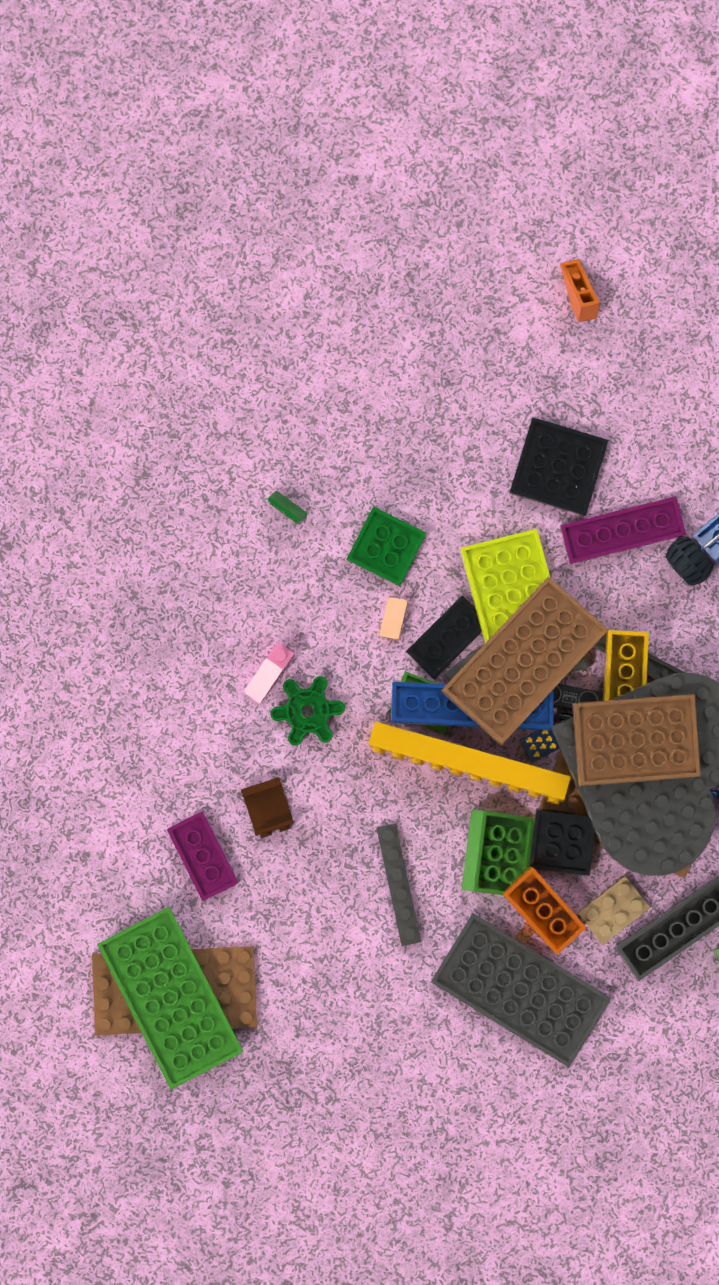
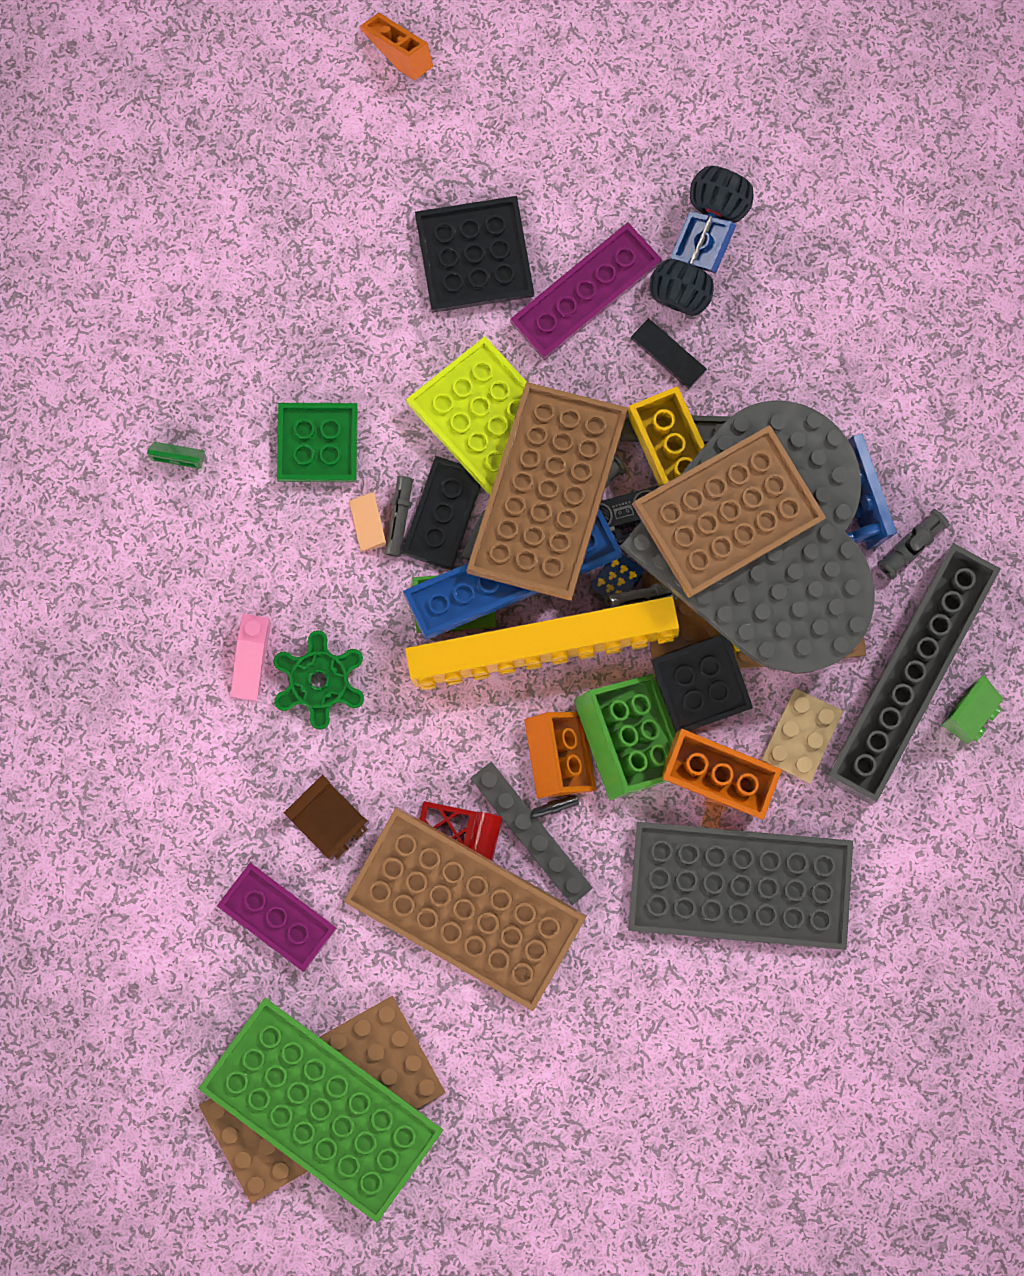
camera: 30 degrees left, 5 degrees down
(329, 913) = (465, 908): none -> medium nougat plate
(359, 874) = (480, 832): none -> red piece
(417, 623) = (400, 506): none -> dark grey pin
(422, 875) = (554, 807): none -> black piece
(443, 842) = (559, 755): none -> orange slope
(547, 763) = (654, 592): none -> dark grey pin
(657, 602) = (668, 353): none -> black tile

